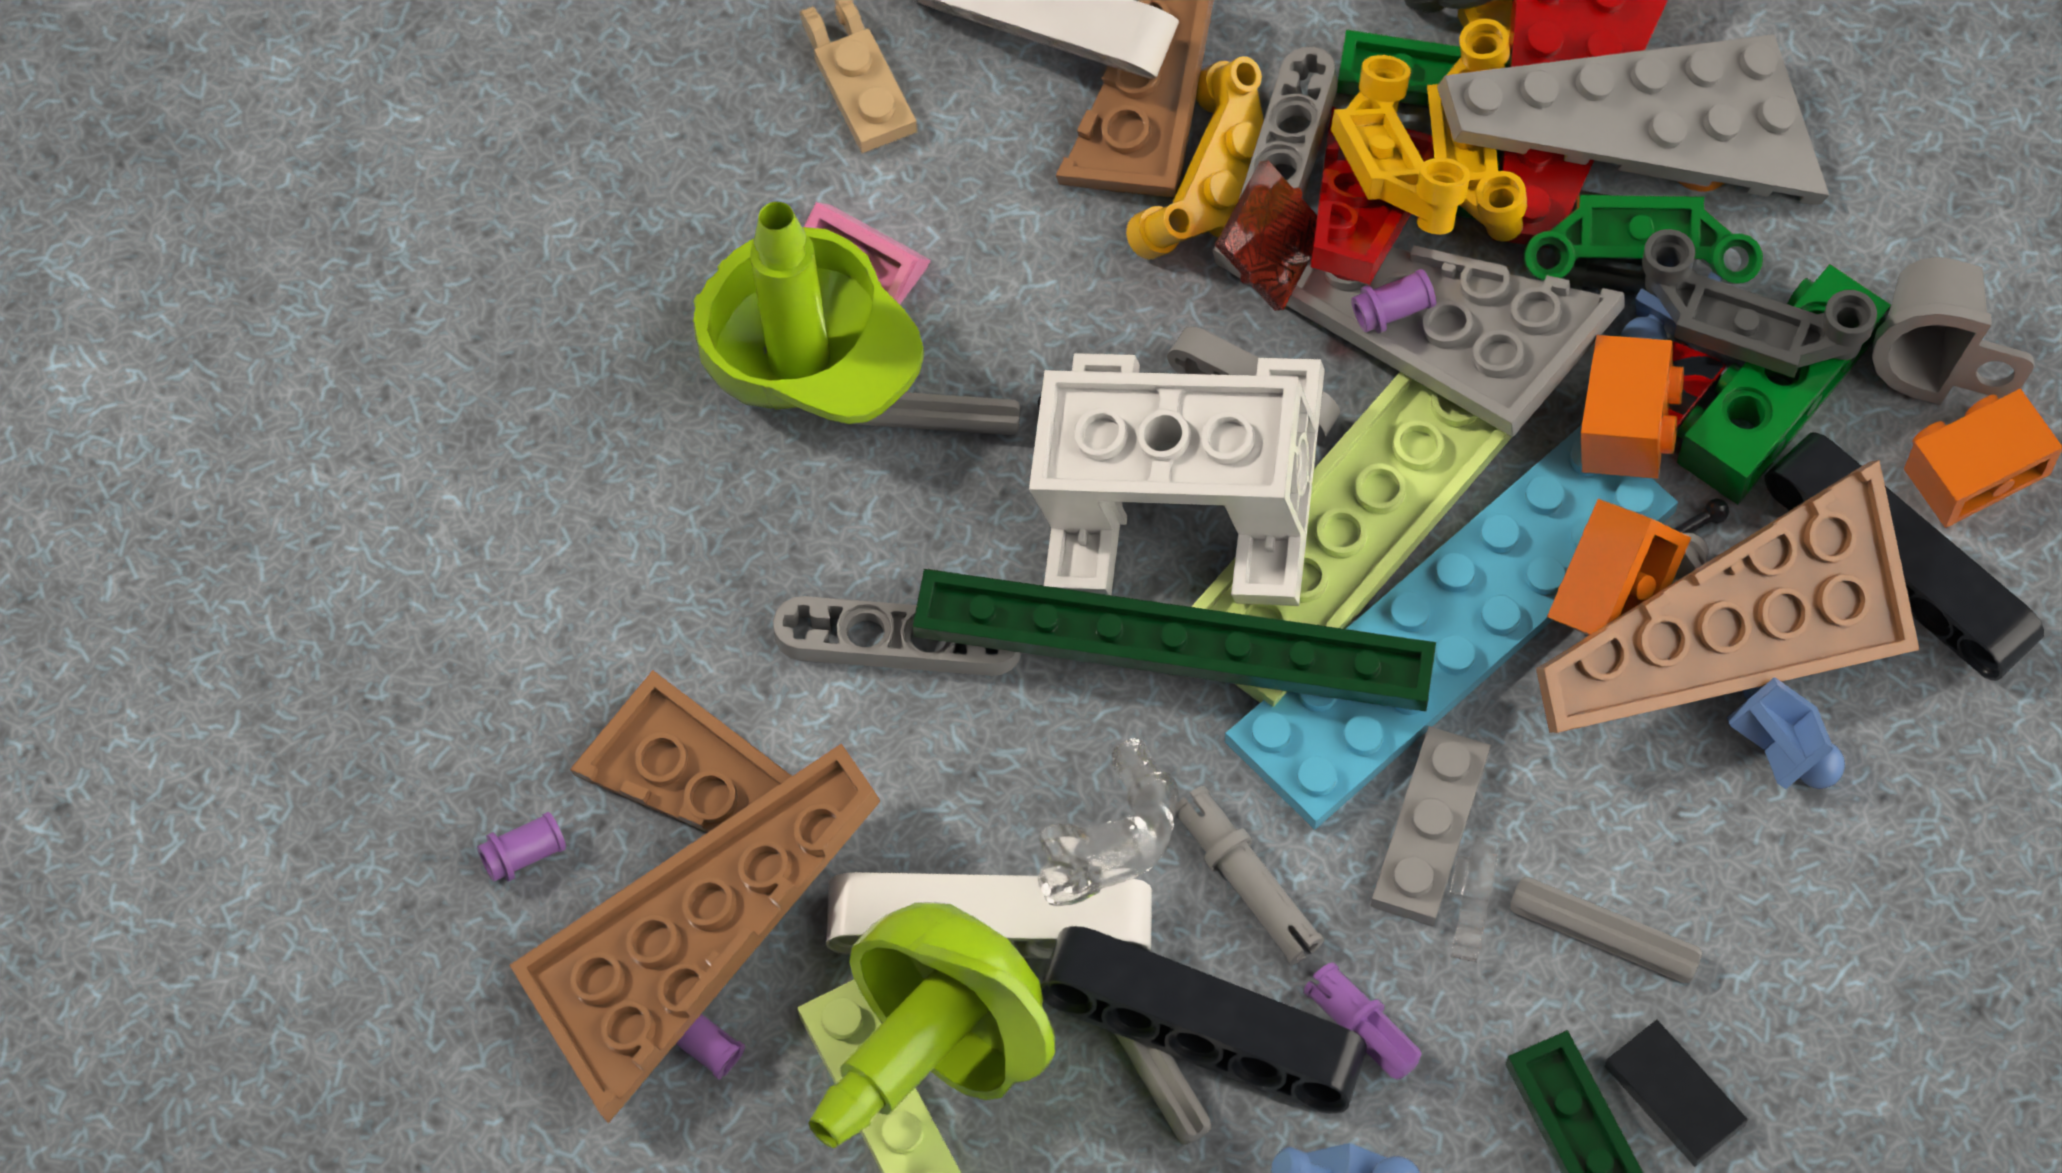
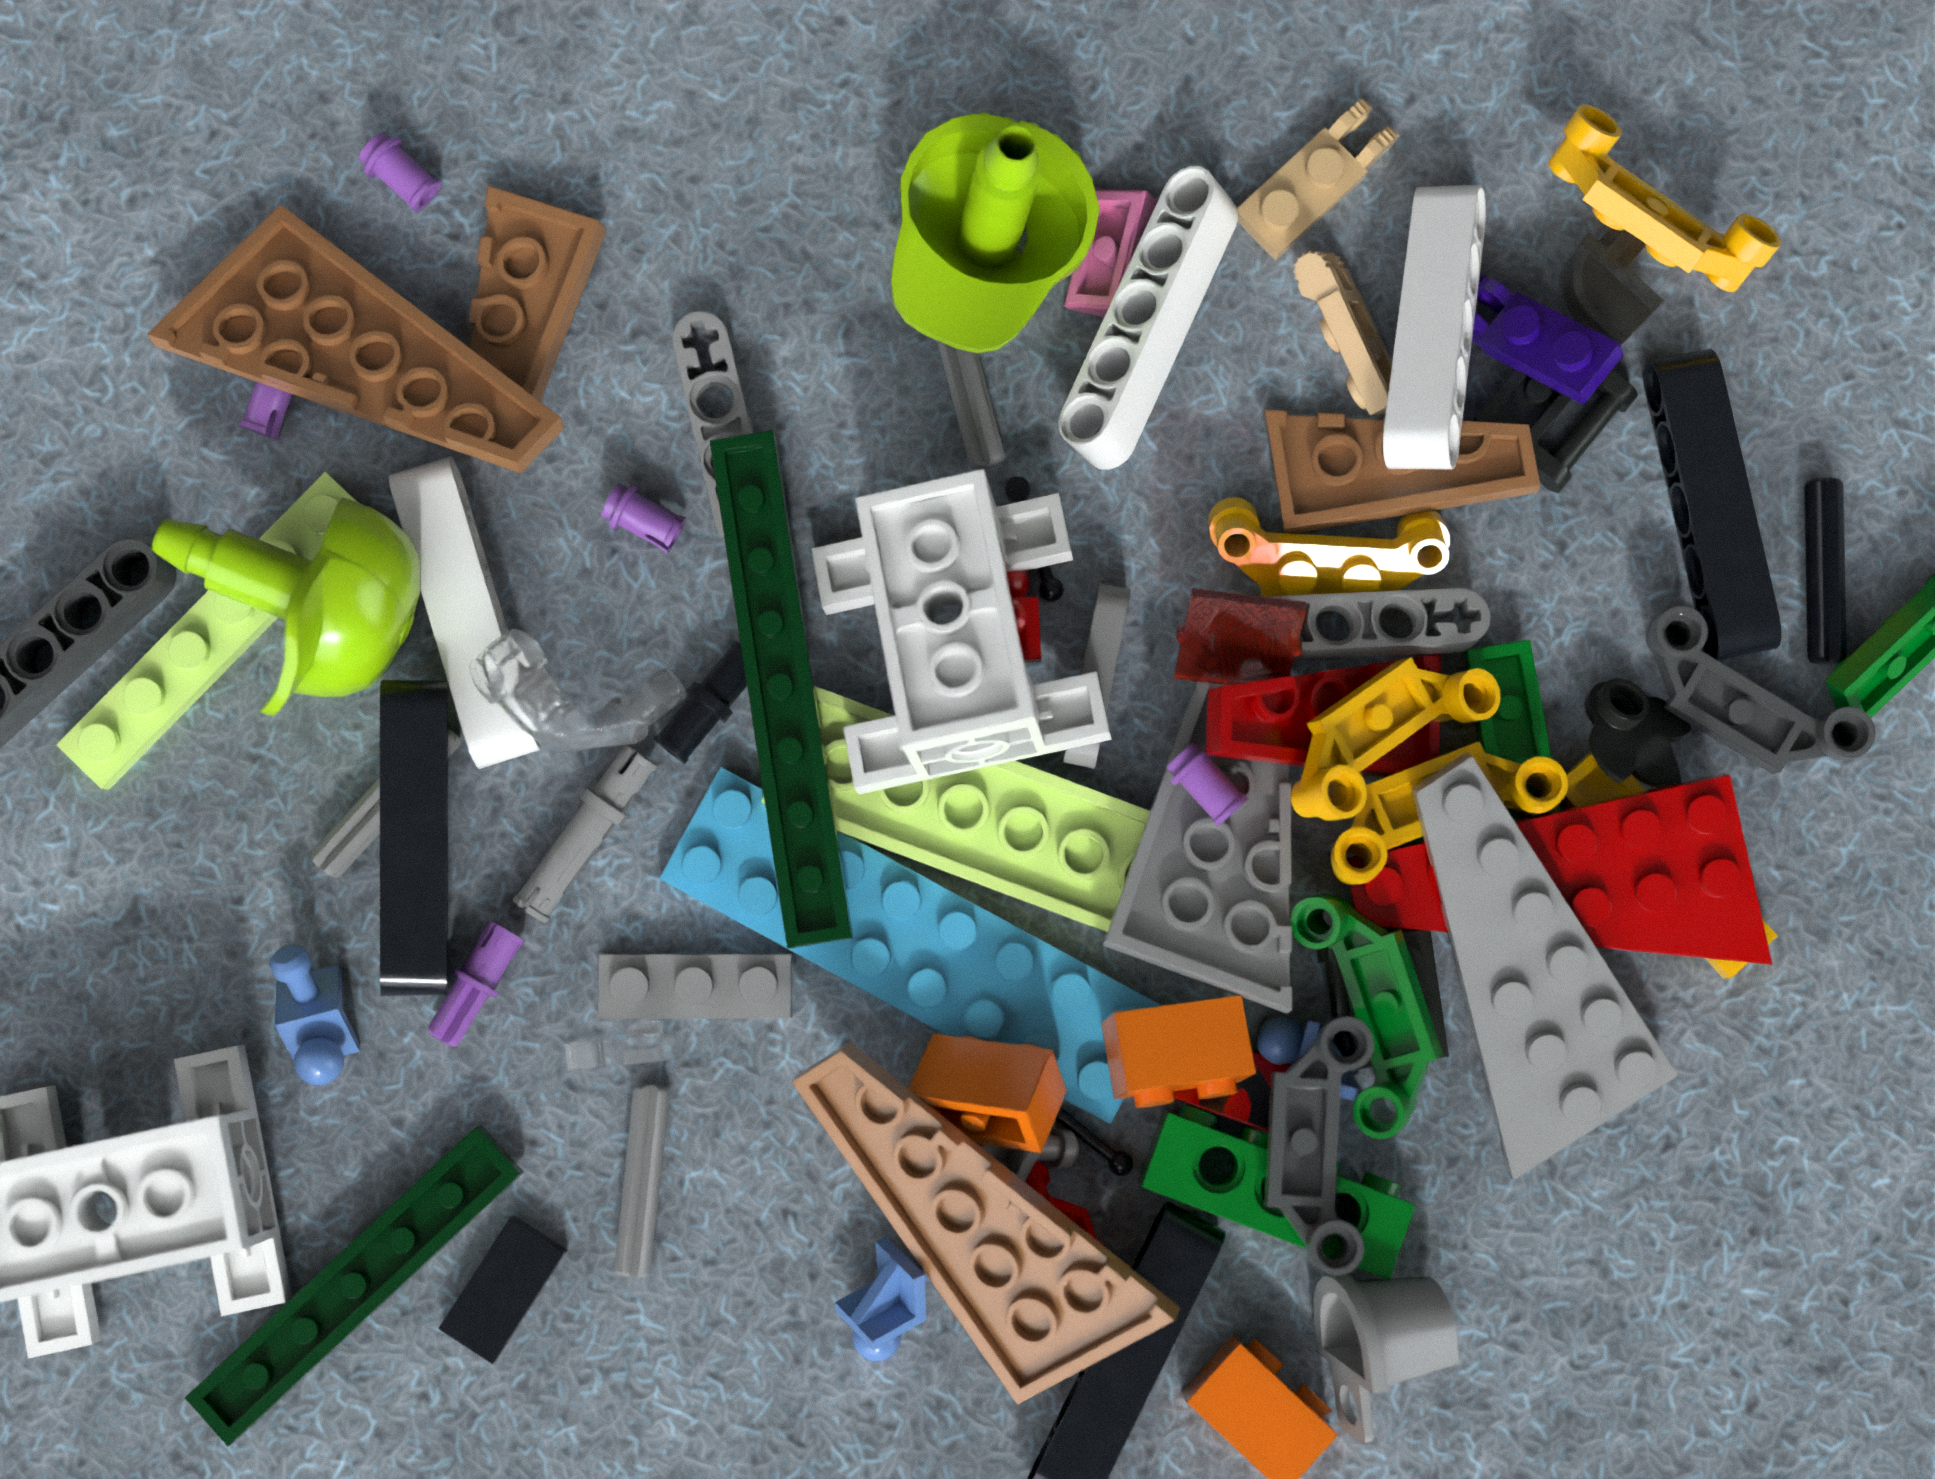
camera: 70 degrees right, 20 degrees up
(955, 729) = (642, 517): none -> medium lavender pin
(962, 244) = (1163, 283): none -> white beam
(1009, 84) = (1347, 327): none -> tan hinge
(1159, 725) = (705, 706): none -> black pin

